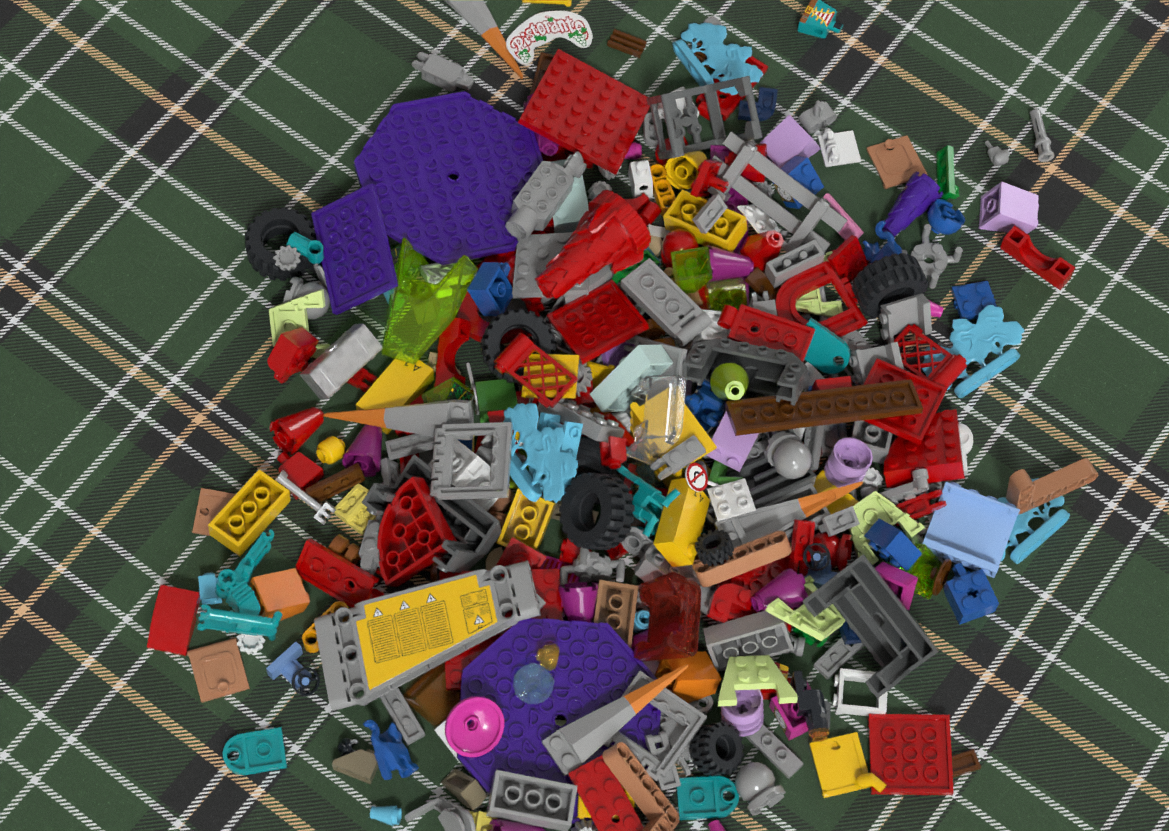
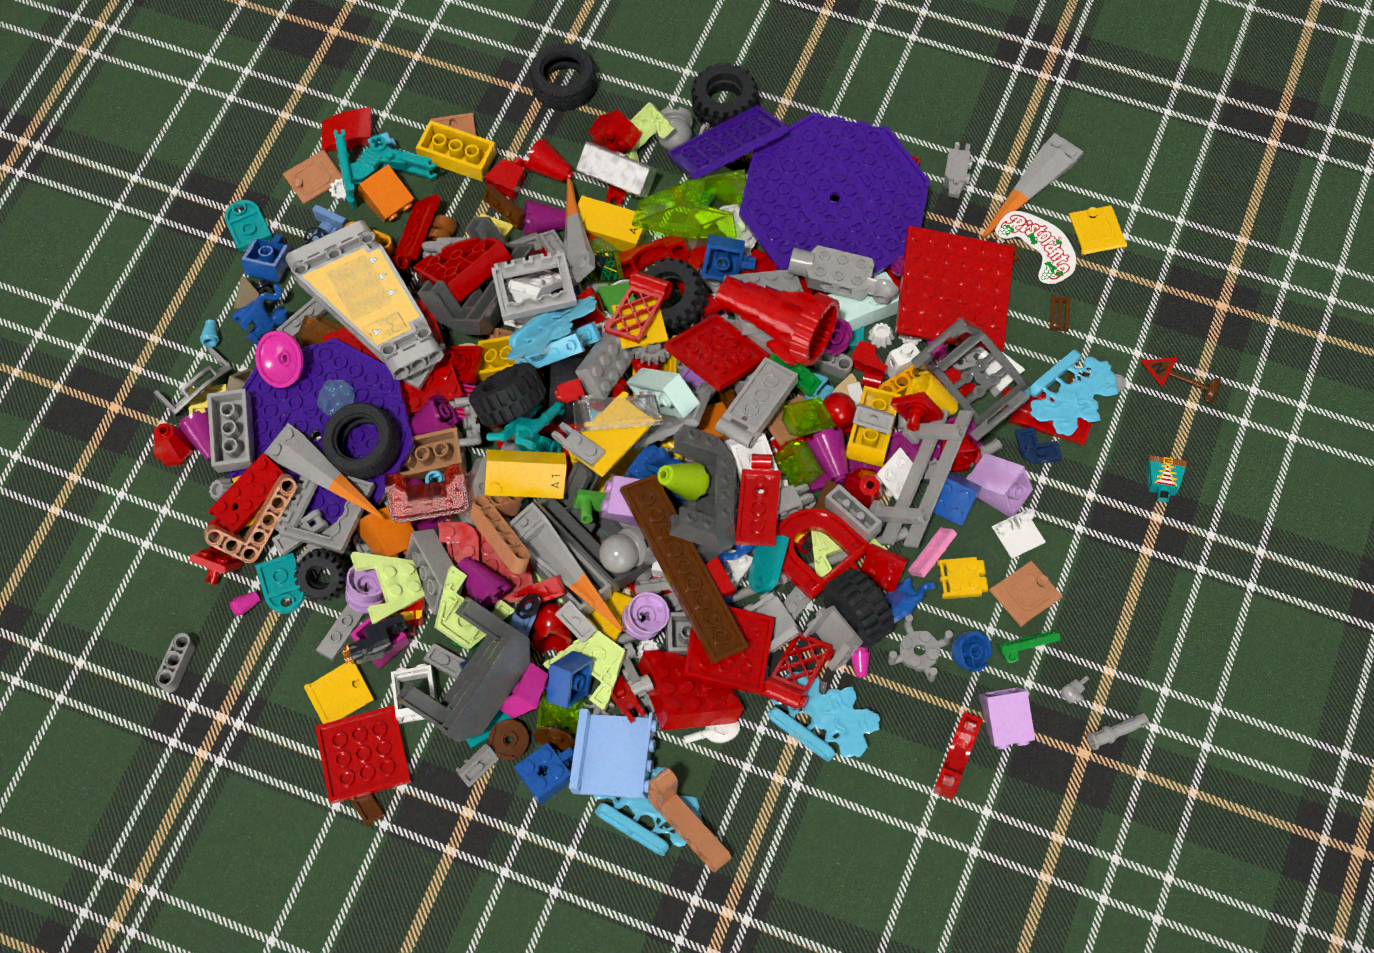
camera: 80 degrees right, 0 degrees up
(188, 362) = (557, 57): none -> black tyre
(287, 258) = (699, 96): light grey piece -> none
(306, 246) = (716, 107): teal piece -> none
(317, 732) = (266, 258): none -> blue hinge
(321, 509) = (478, 206): light grey hinge -> none
(330, 450) = (537, 192): yellow head -> none
(548, 656) = (362, 395): clear yellow cone -> none
(619, 651) = (339, 427): none -> black tyre
(697, 477) = (568, 471): piece -> none
(722, 549) = (501, 505): black tyre -> none
(731, 499) = (561, 511): white hinge -> none
(757, 785) = (295, 619): light grey tile -> none
(817, 117) = (1045, 503): light grey beam -> none
(868, 203) = (963, 577): none -> yellow plate
(870, 779) = (324, 720): yellow arm -> none
(912, 202) = (973, 613): dark purple cone -> none
(934, 615) = (506, 728): none -> reddish brown plate
(948, 653) = (477, 765): none -> light grey plate
(972, 299) = (889, 704): blue plate -> none

